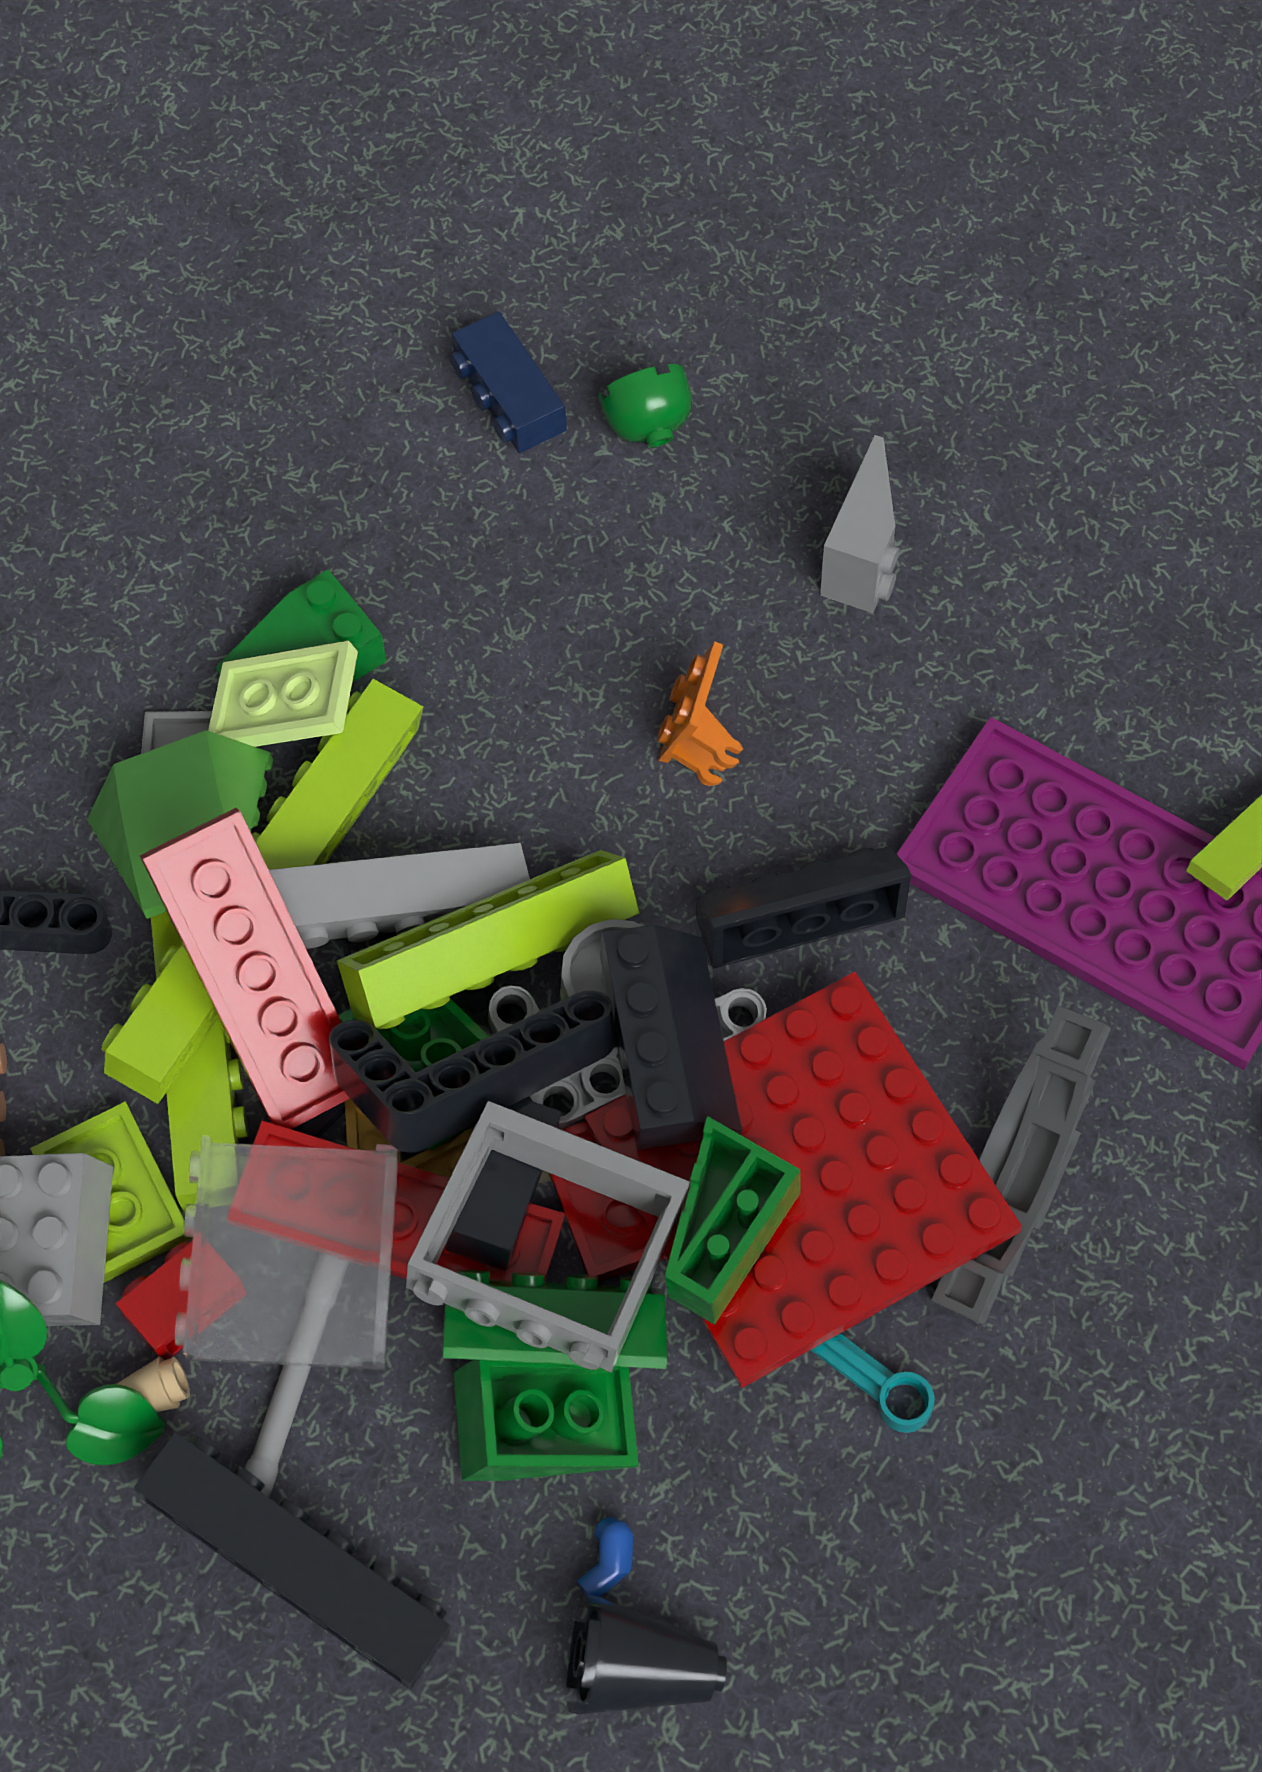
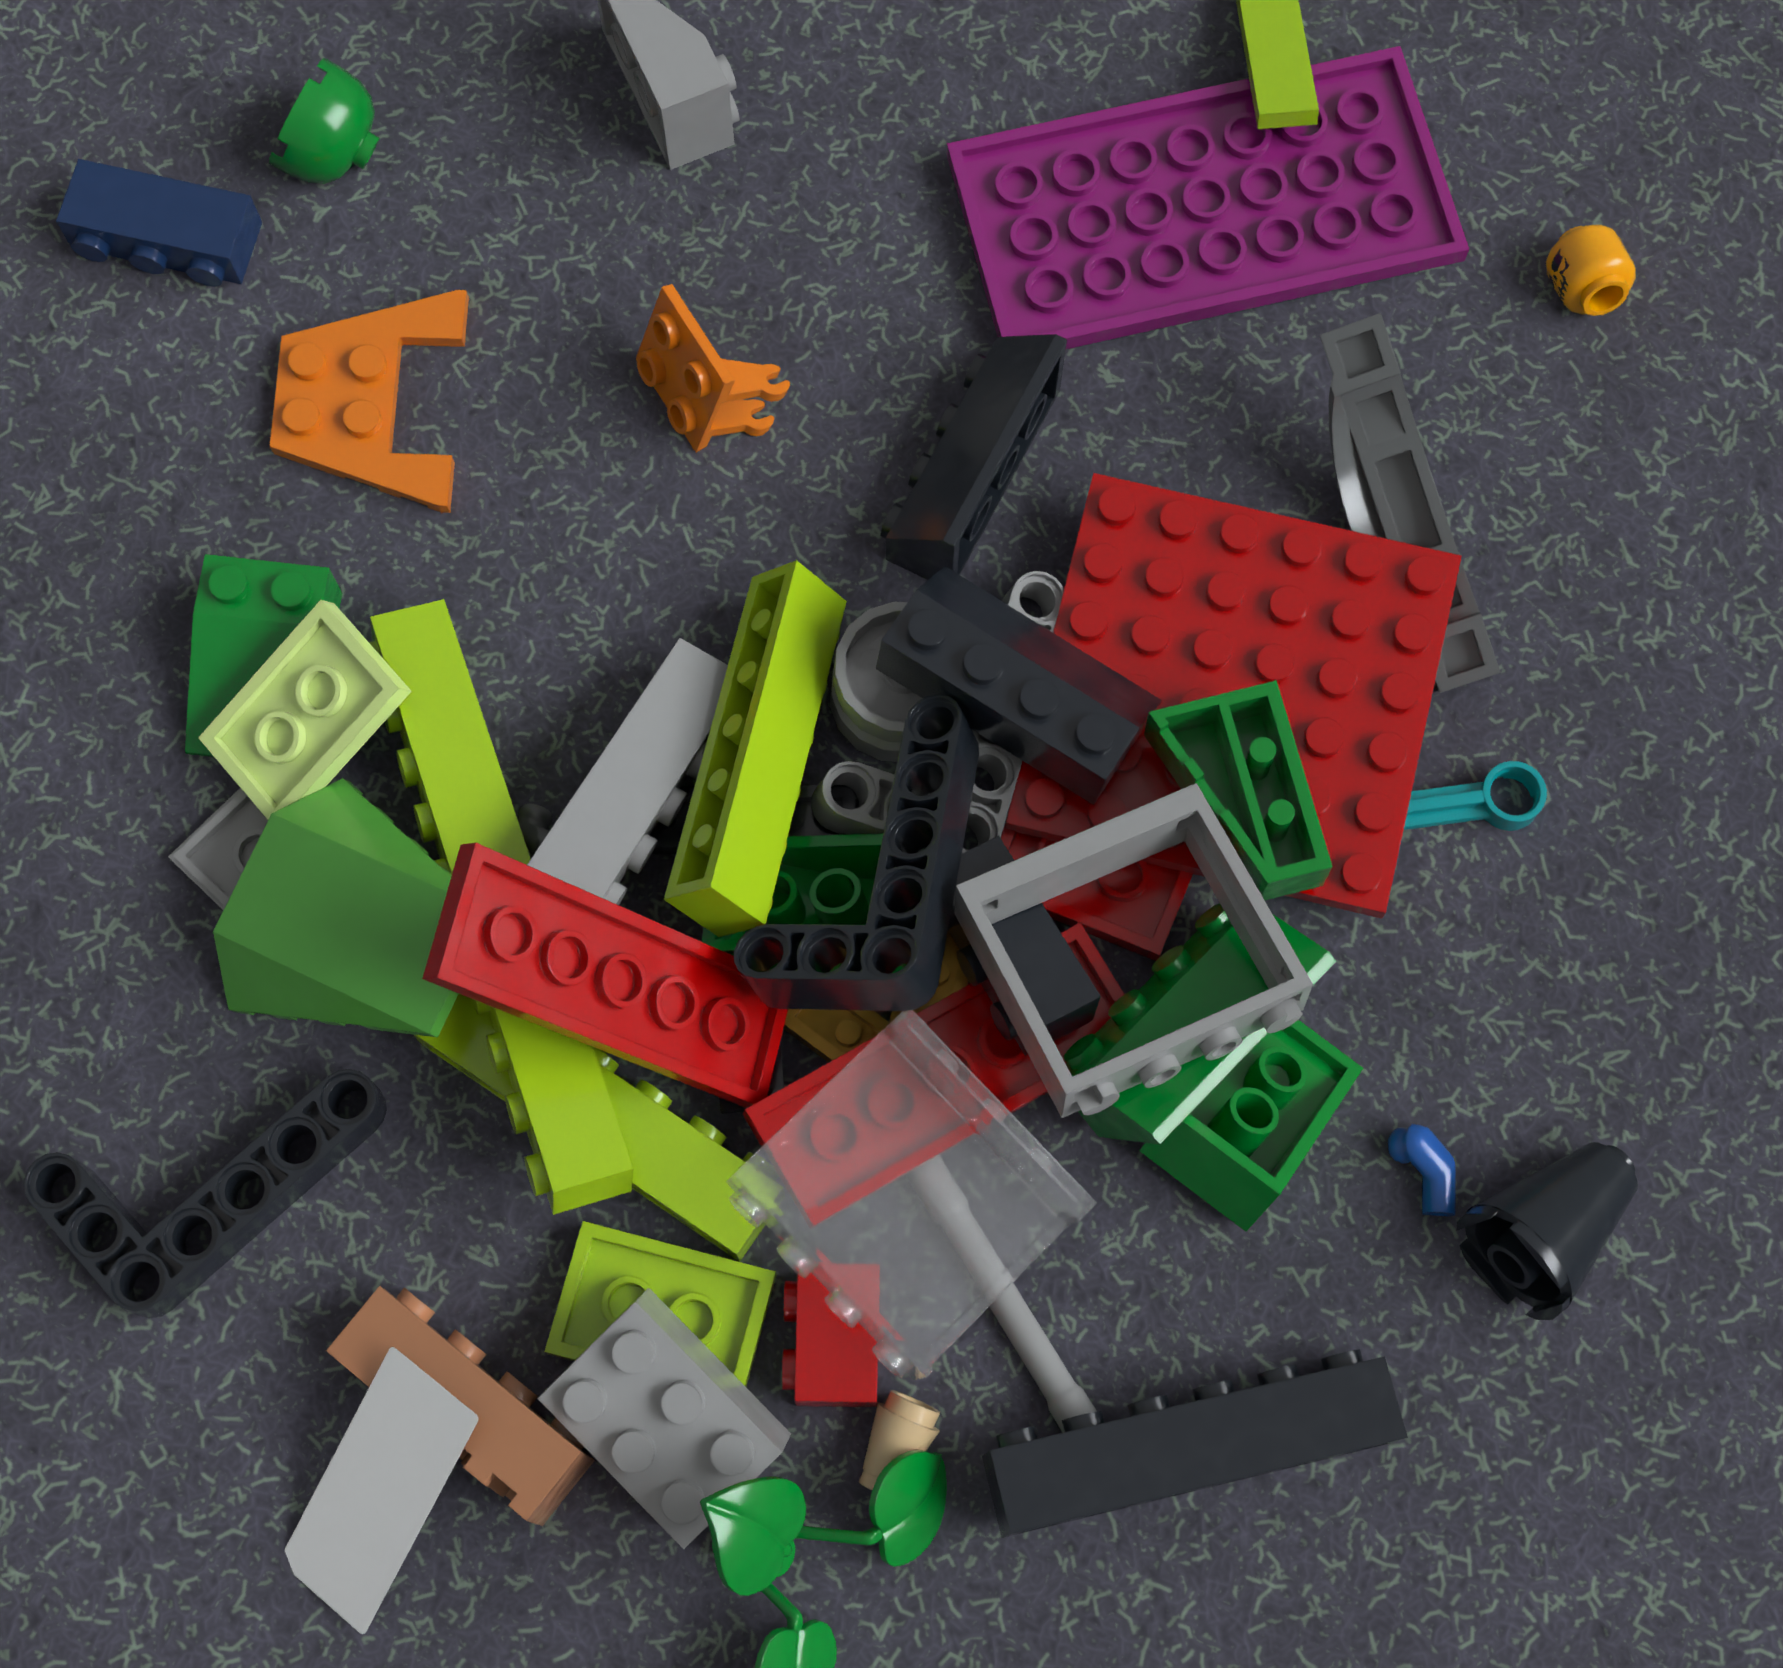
camera: 50 degrees left, 10 degrees up
(504, 556) = (341, 397): none -> orange wing

